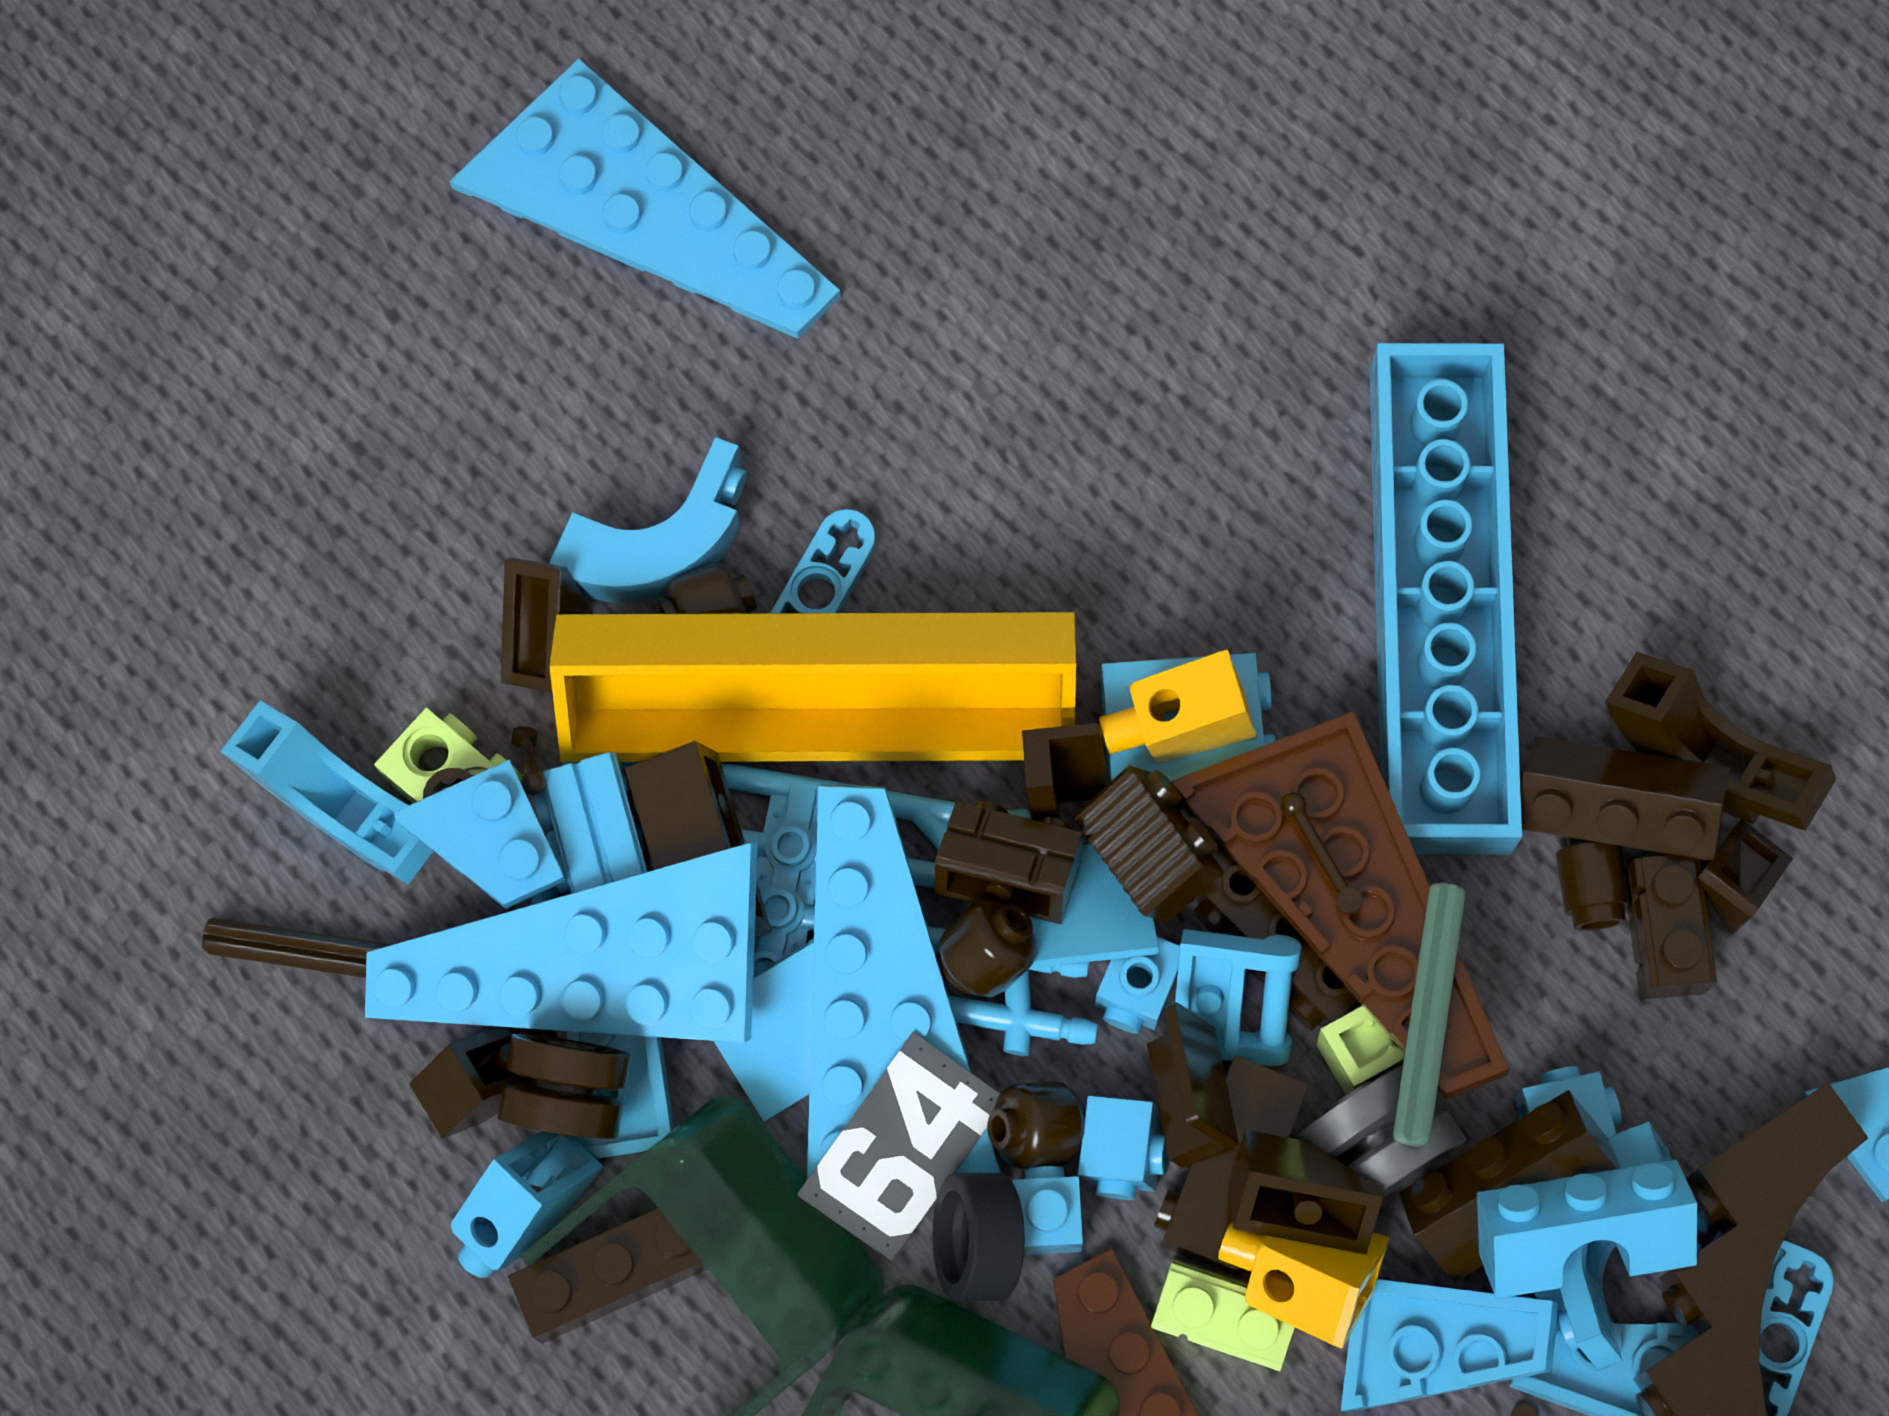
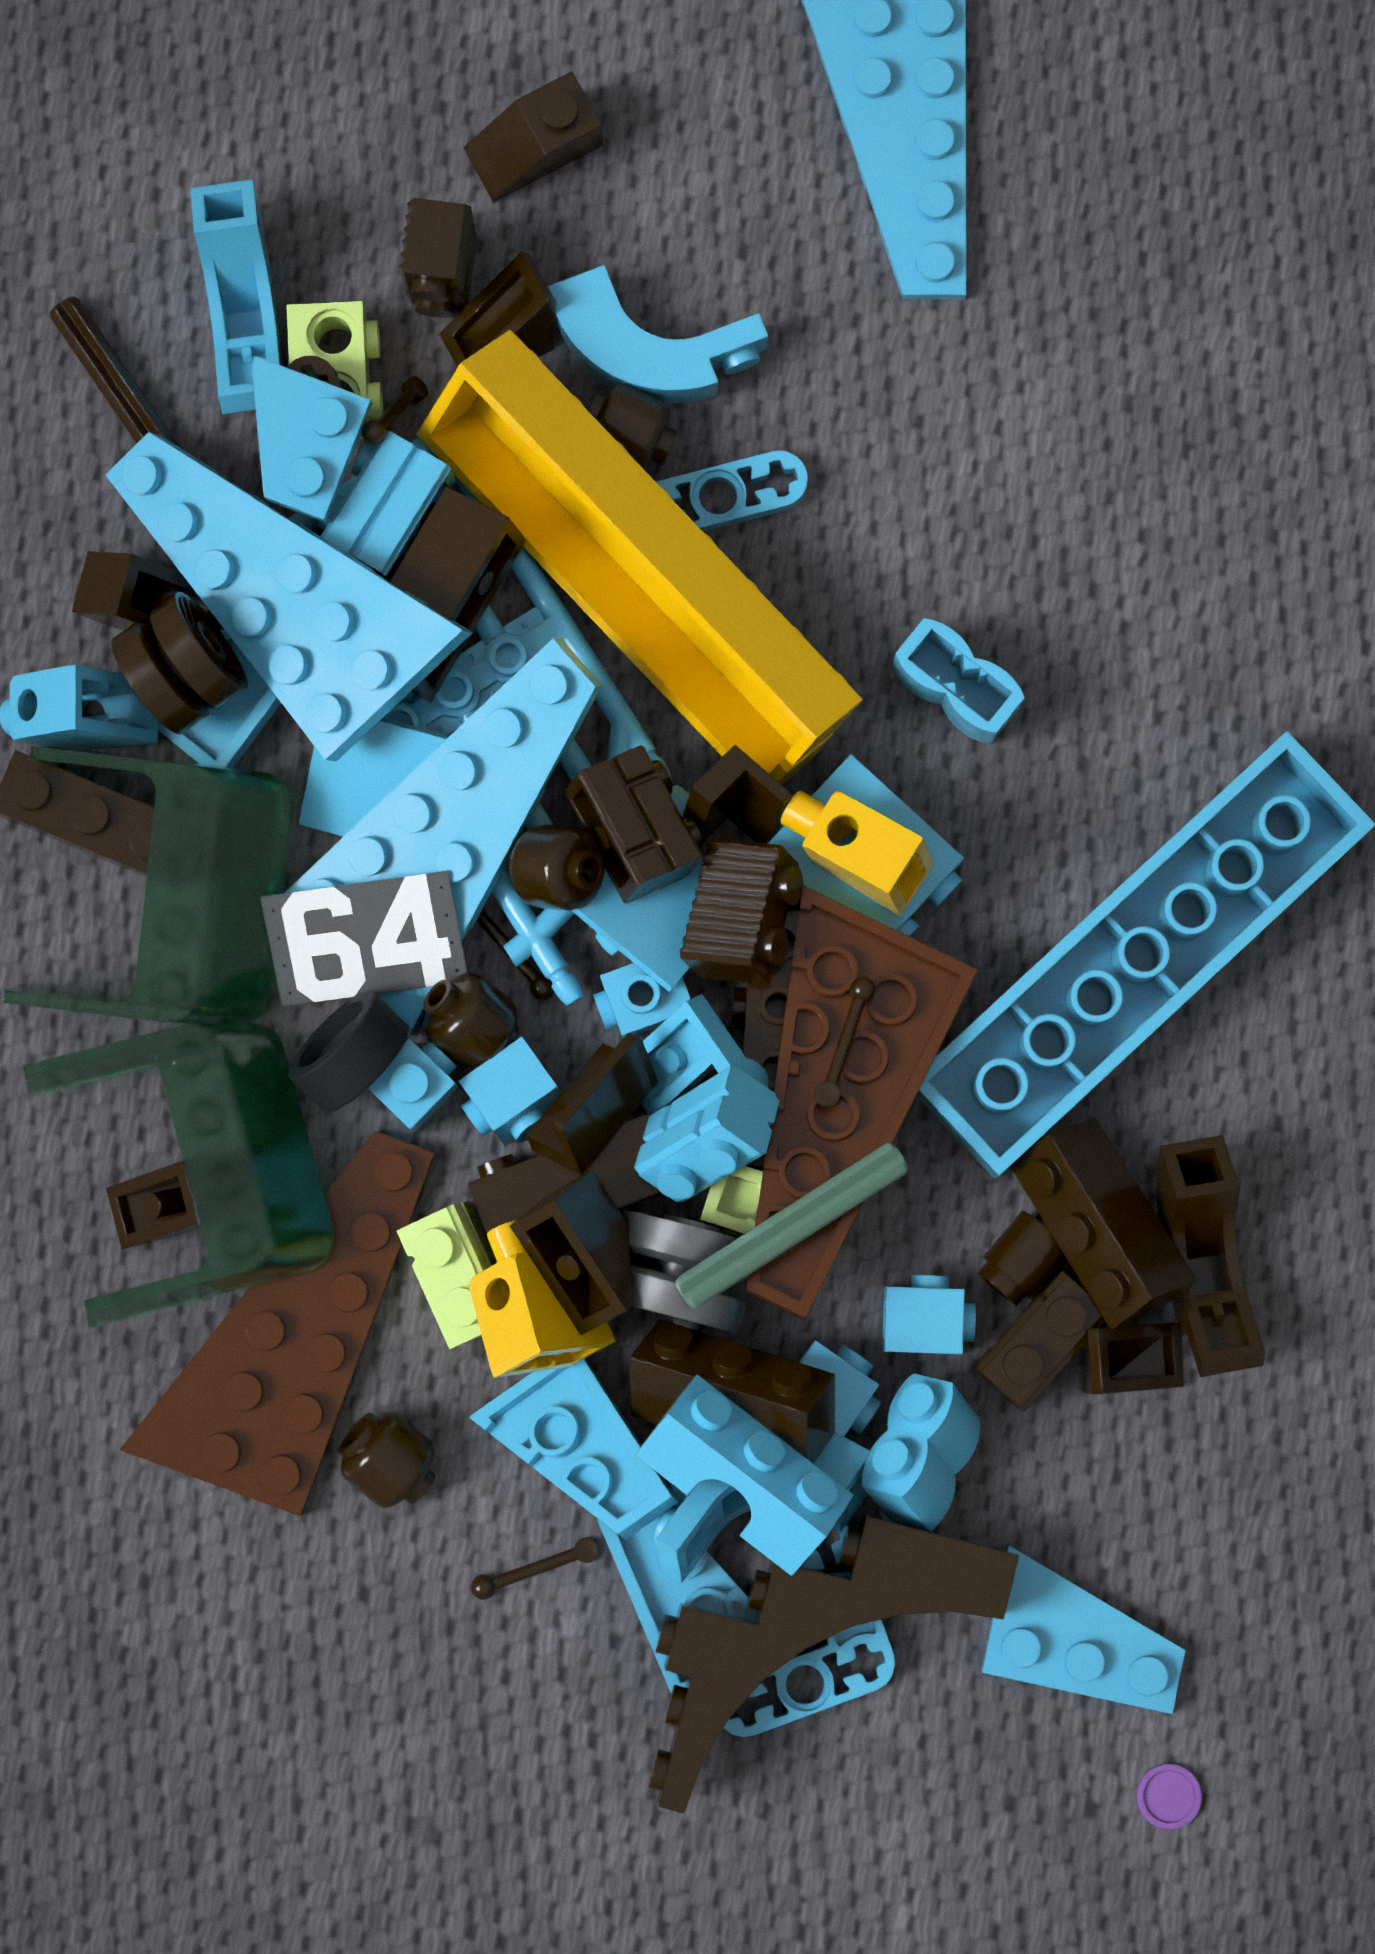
camera: 45 degrees right, 10 degrees up
(429, 480) = (535, 137): none -> dark brown slope
(448, 622) = (438, 256): none -> dark brown brick
(1058, 1053) = (539, 985): none -> dark brown hinge
(1135, 542) = (942, 671): none -> medium azure brick
(1297, 1018) = (707, 1134): none -> medium azure brick
(1575, 994) = (927, 1317): none -> medium azure brick
(1679, 1087) = (917, 1458): none -> medium azure brick

